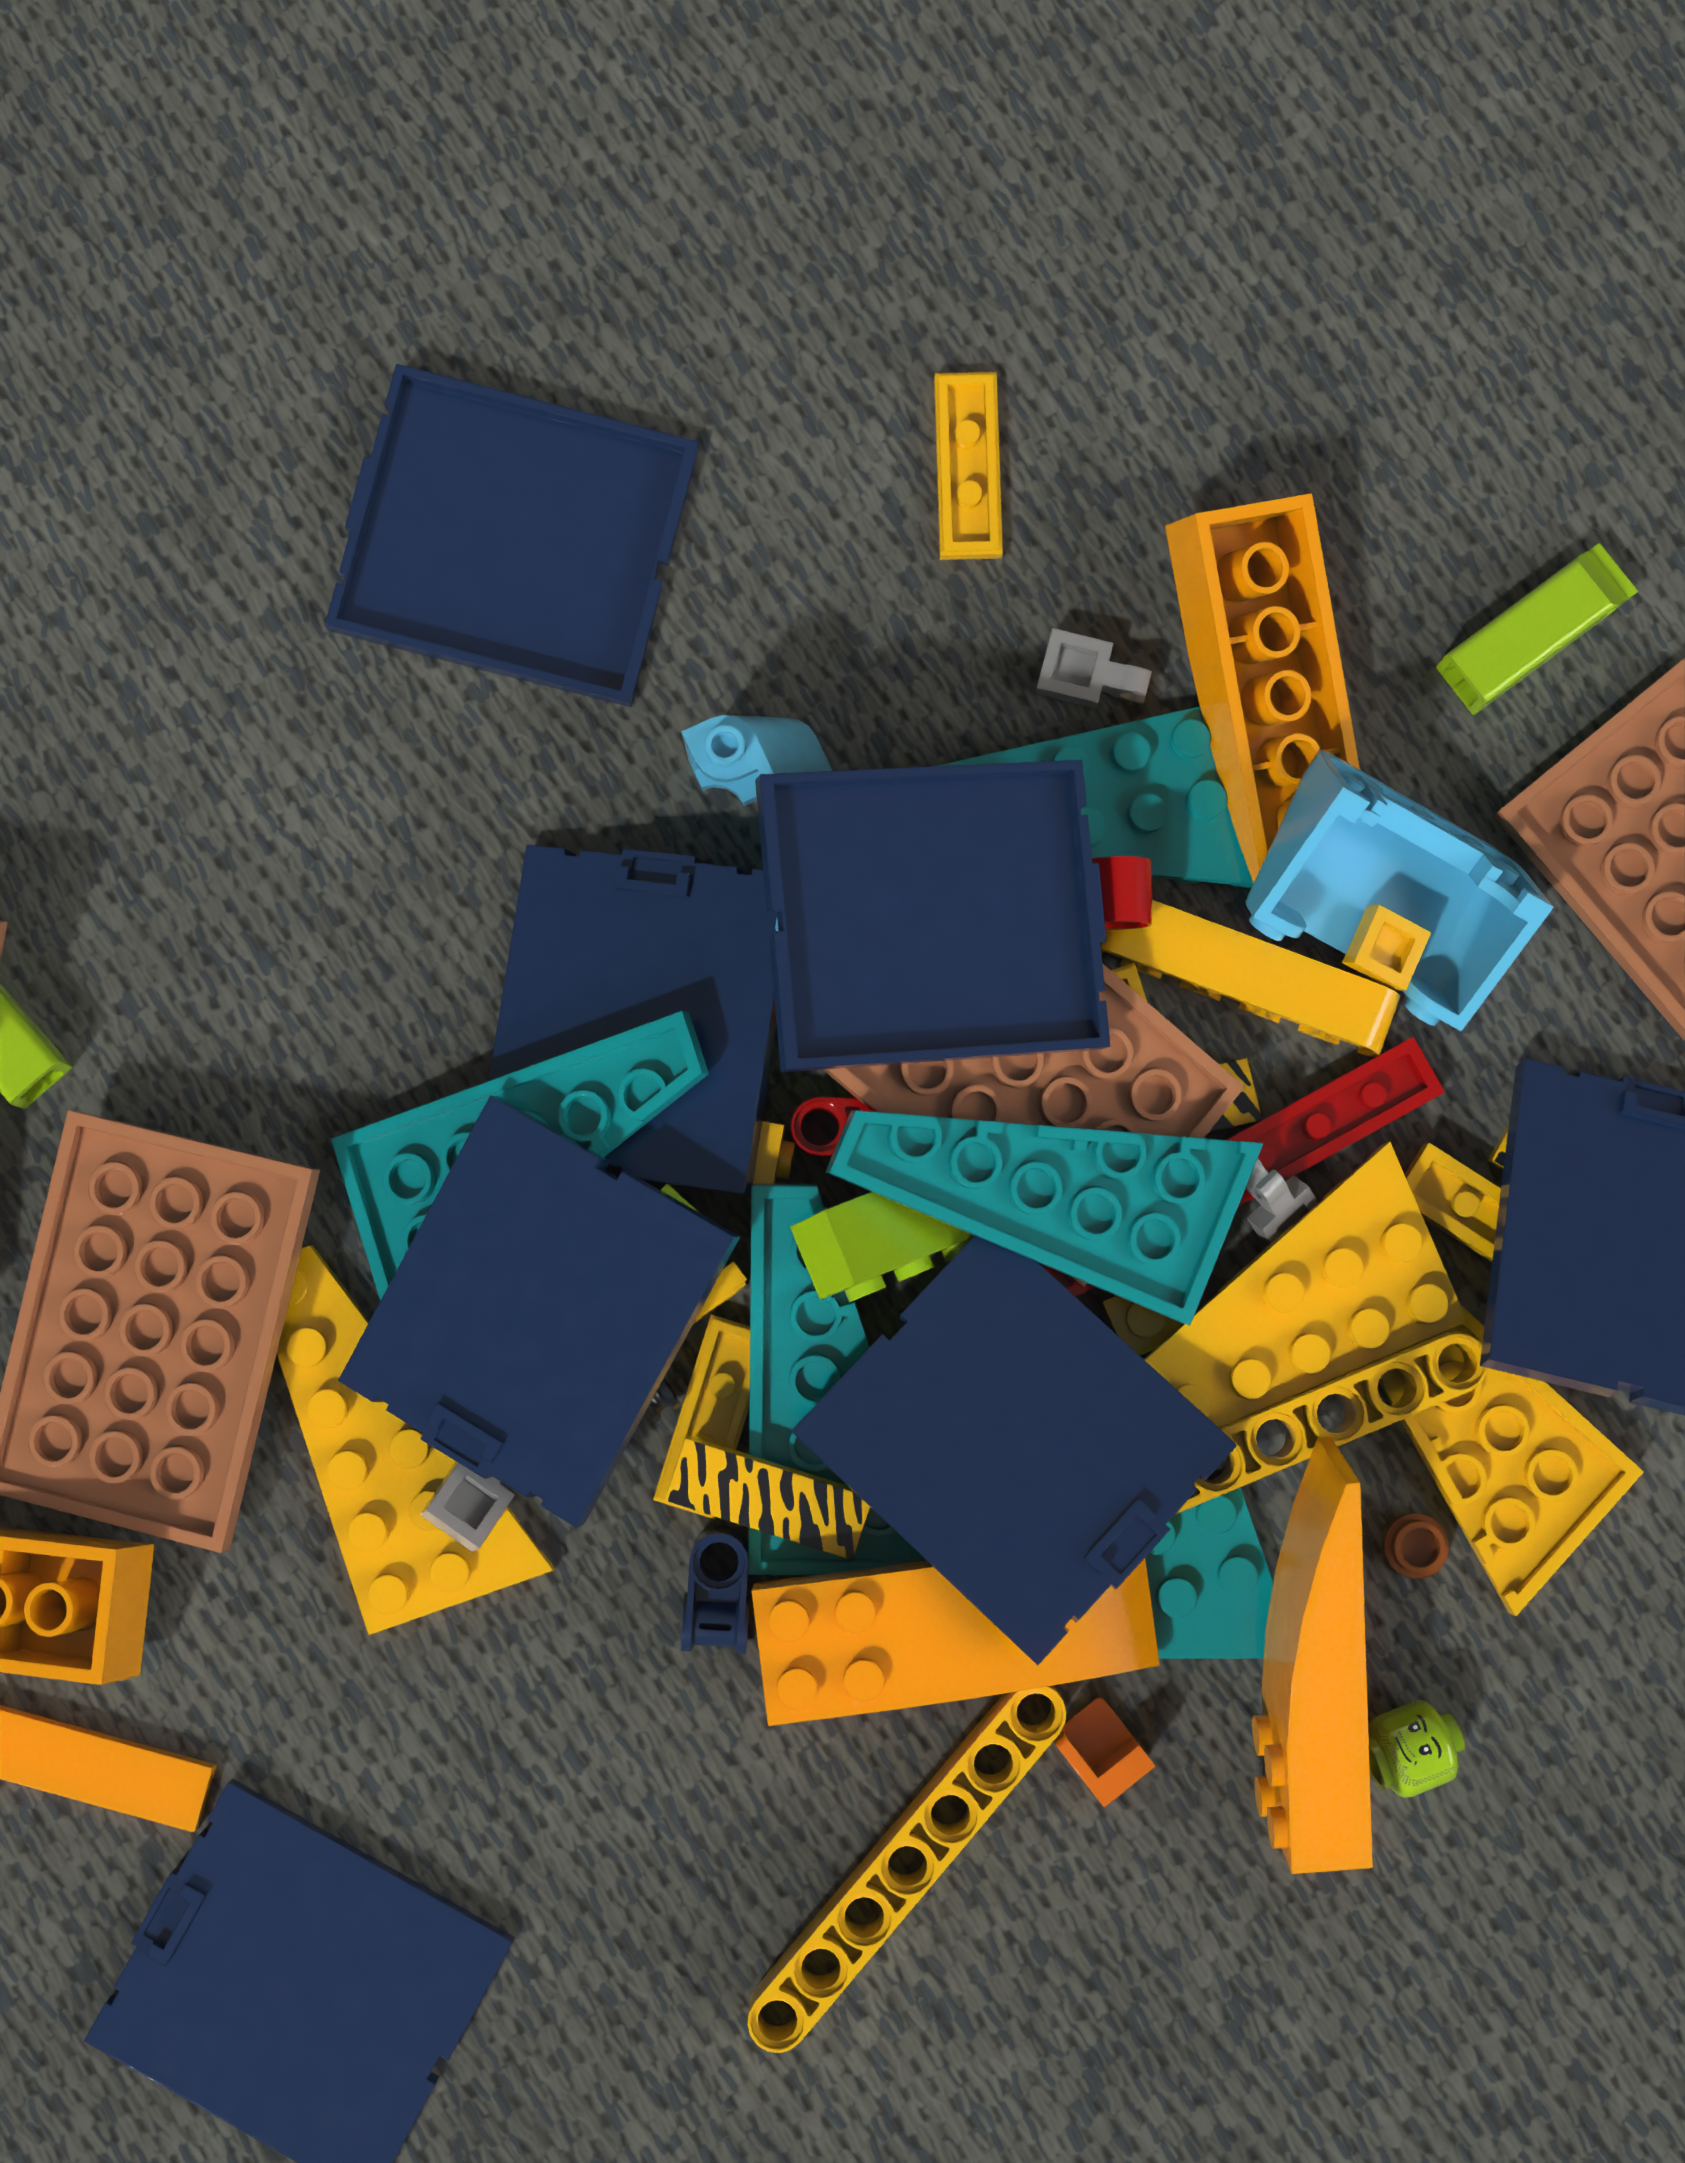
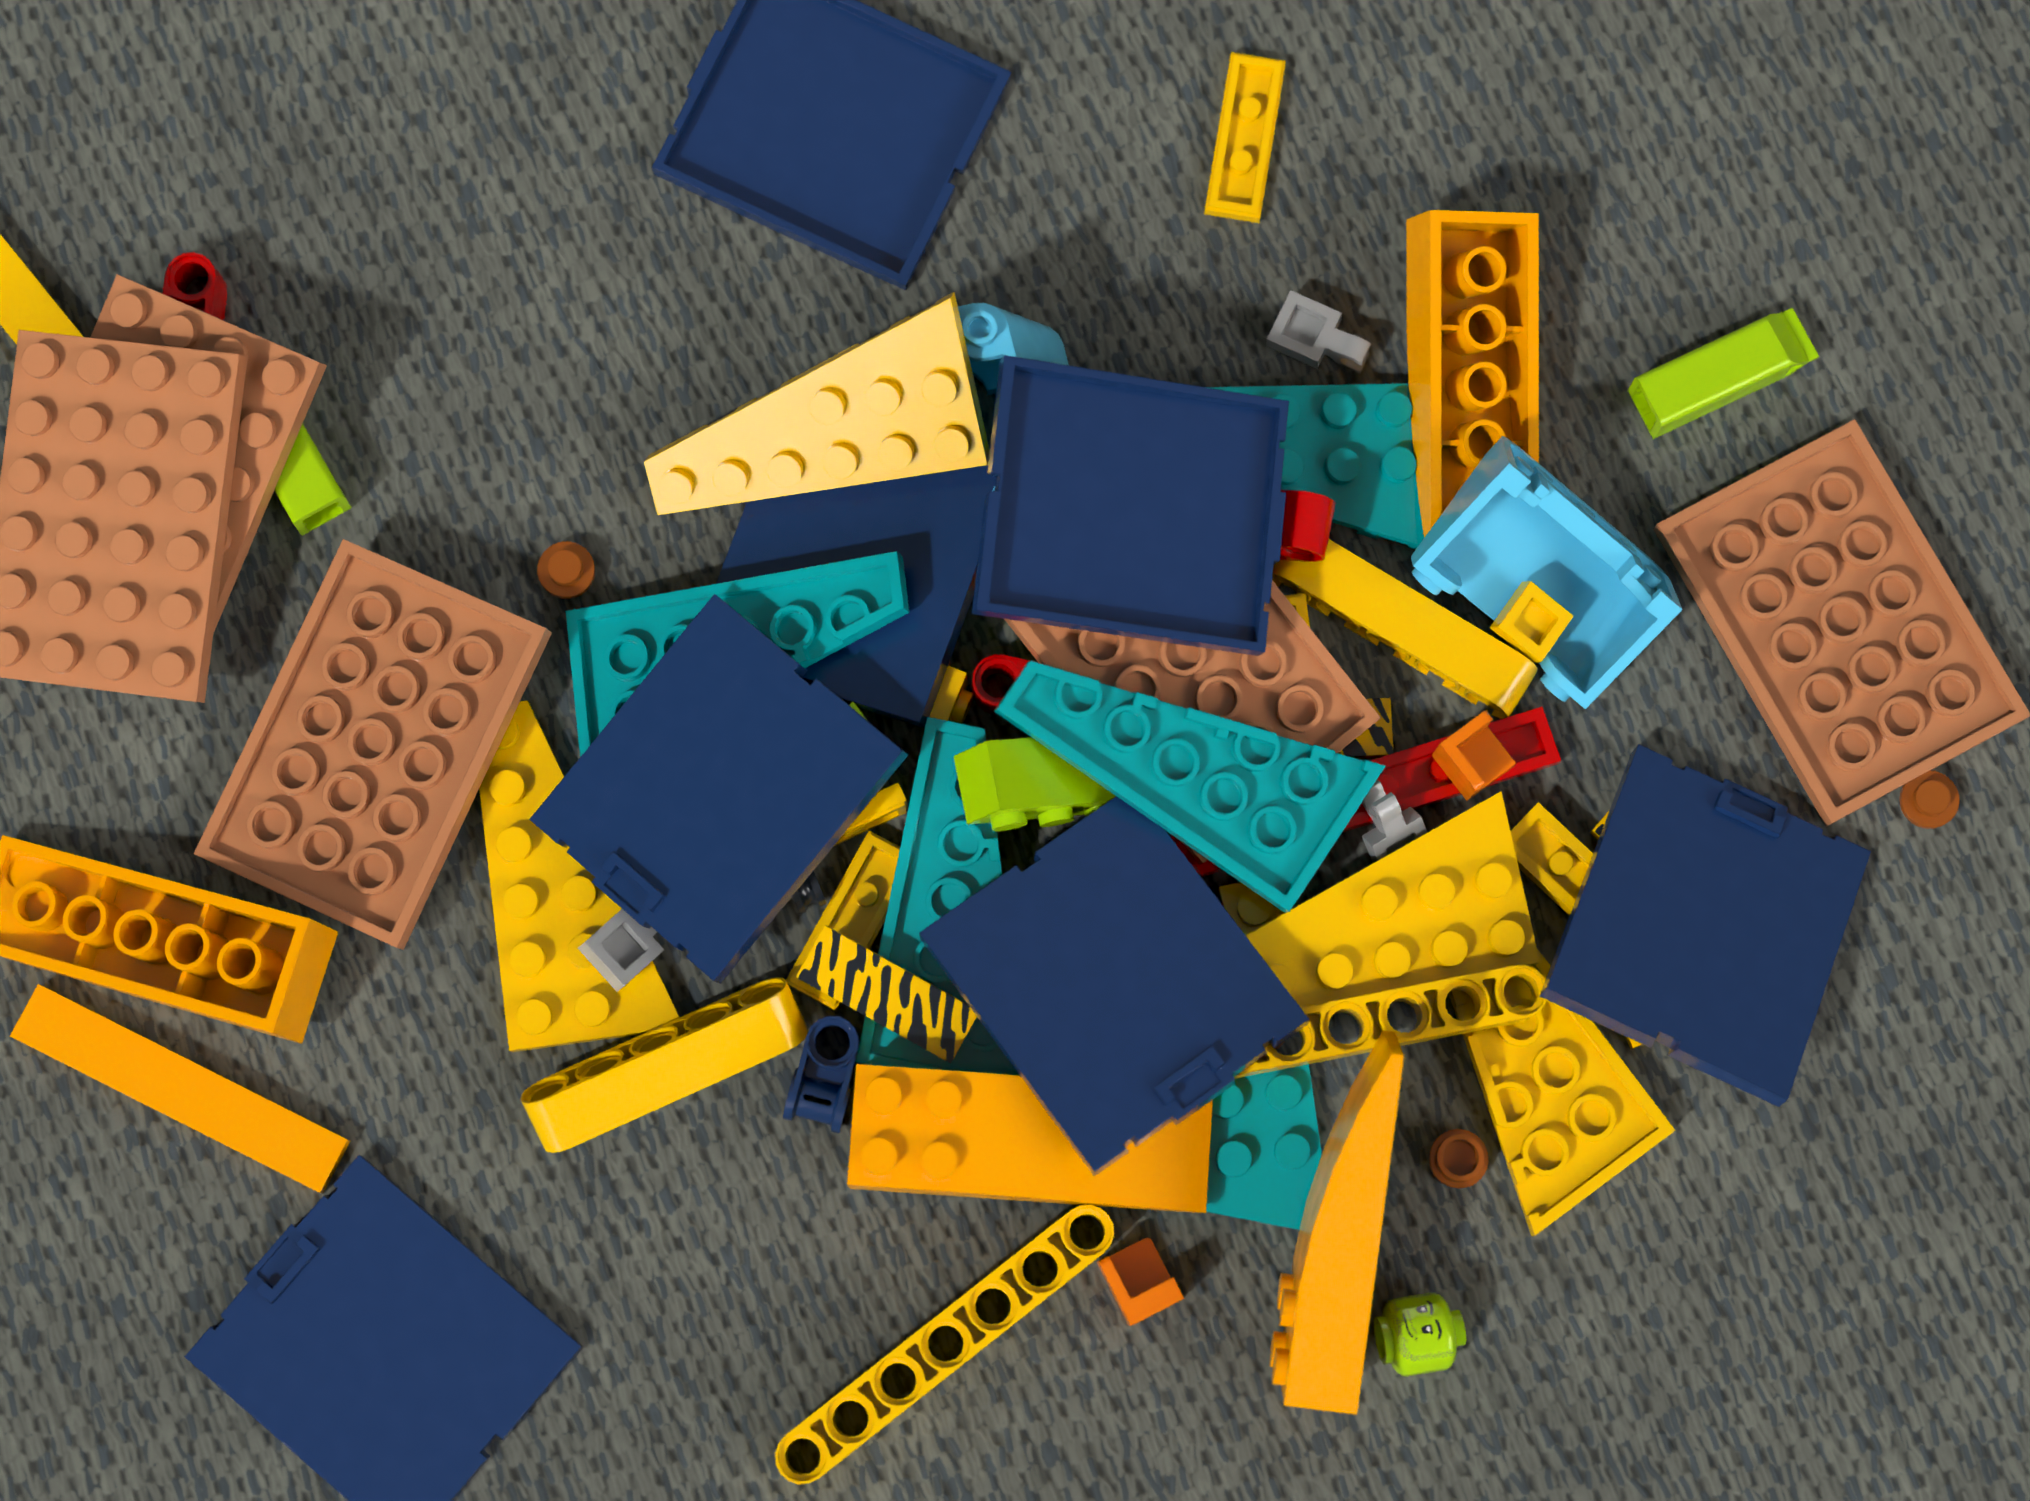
camera: 15 degrees right, 5 degrees down
(322, 1091) = (566, 570): none -> dark orange plate
(541, 1619) = (664, 1064): none -> yellow beam
(605, 869) = (859, 418): none -> yellow wing
(1353, 1110) = (1473, 756): none -> orange panel

